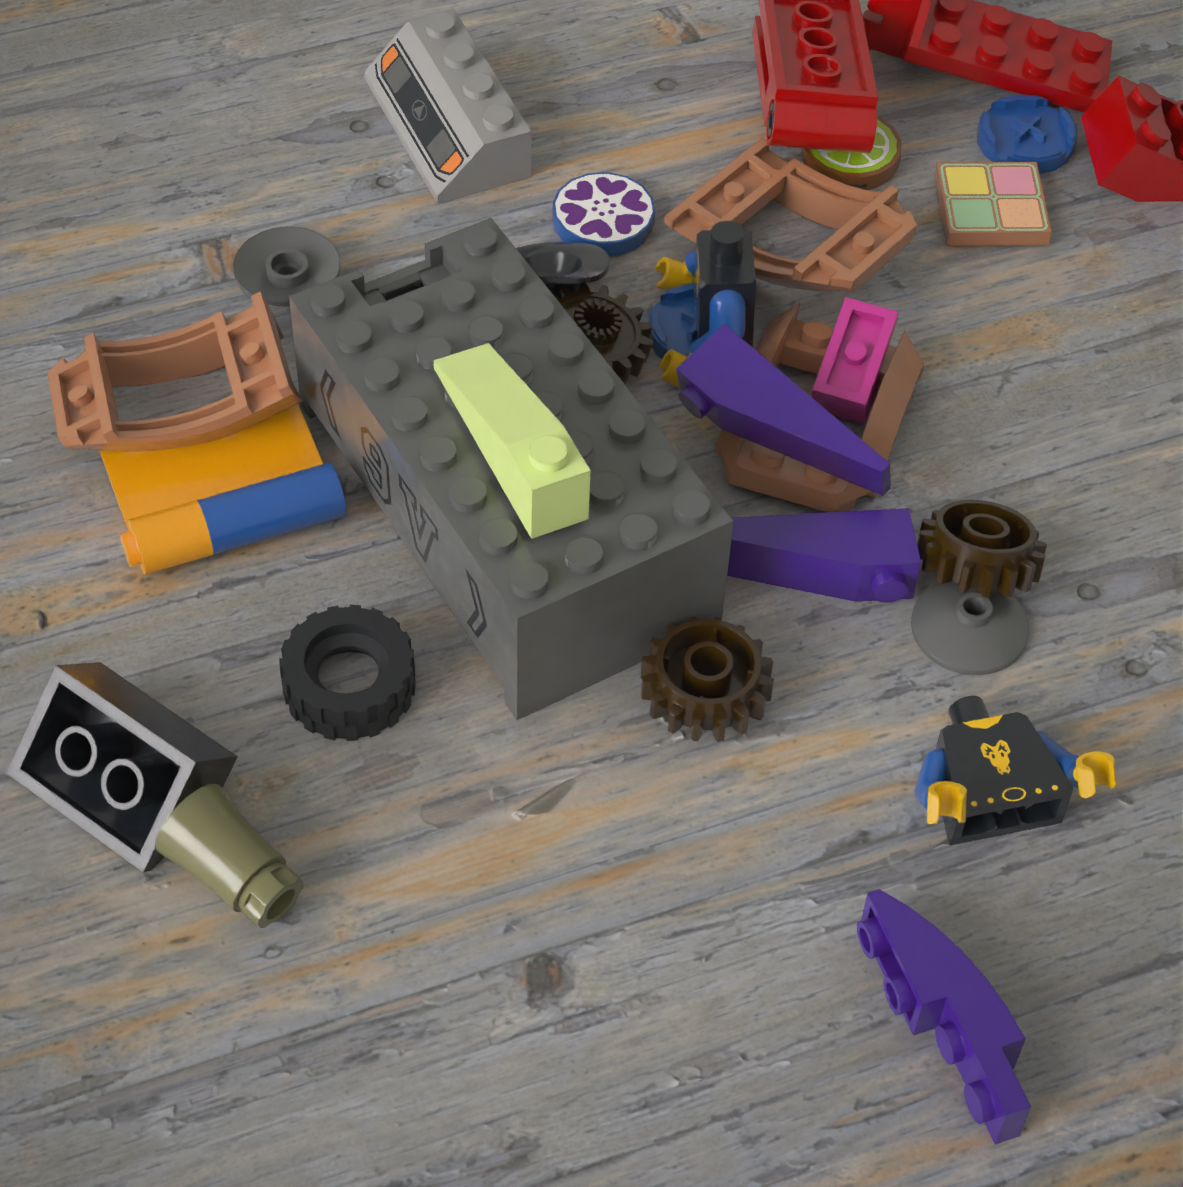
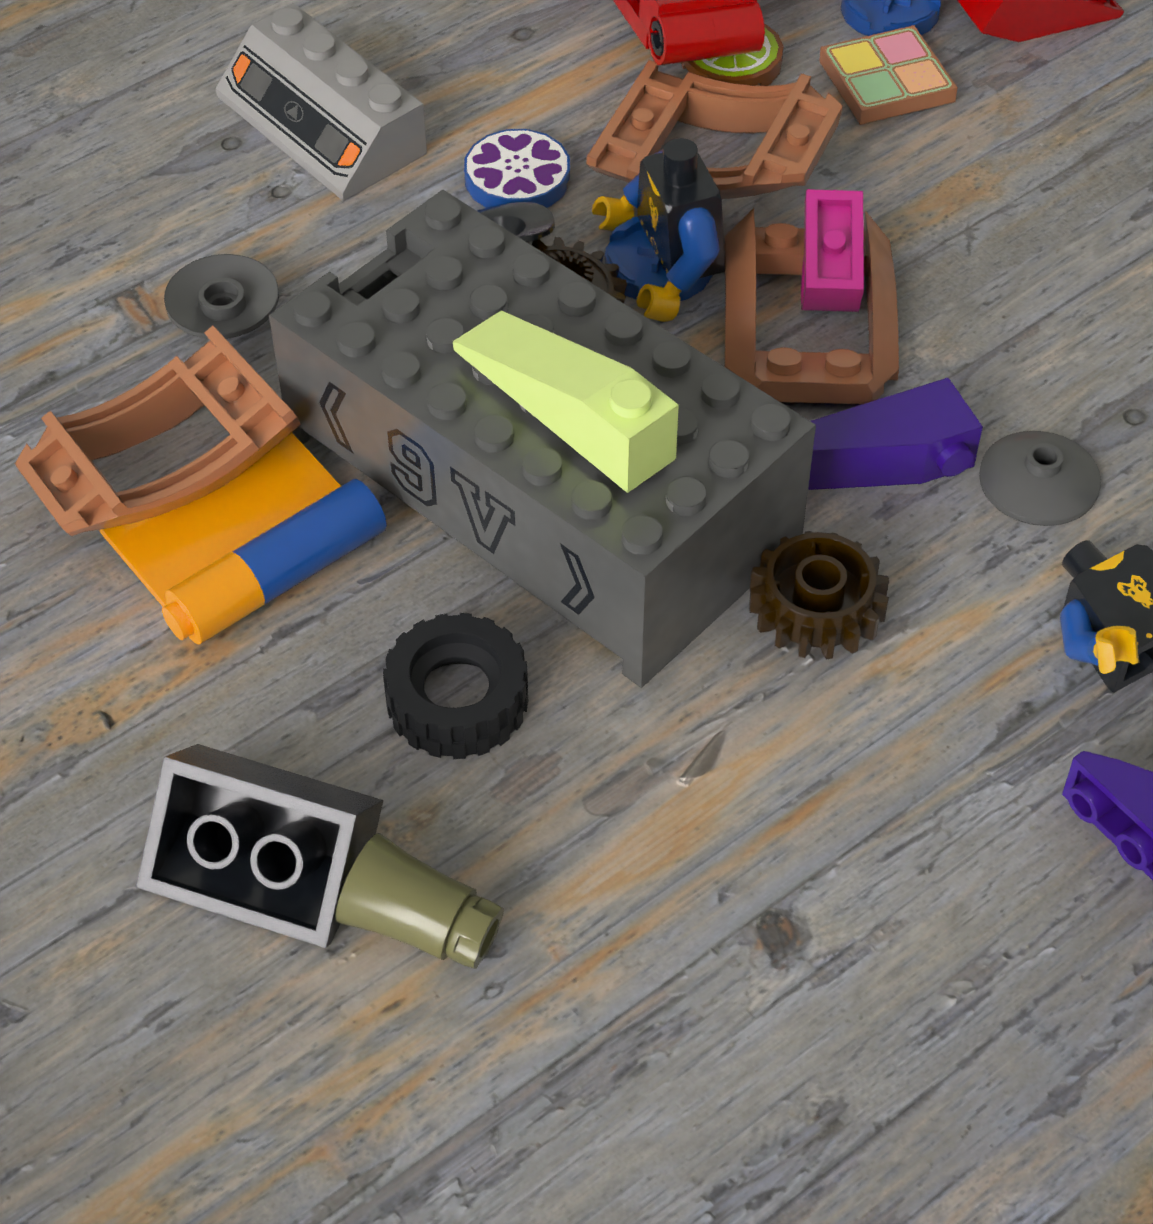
camera: 15 degrees left, 0 degrees up
(761, 404) = (771, 312): dark purple slope -> none
(981, 547) = (1030, 397): dark brown gear -> none

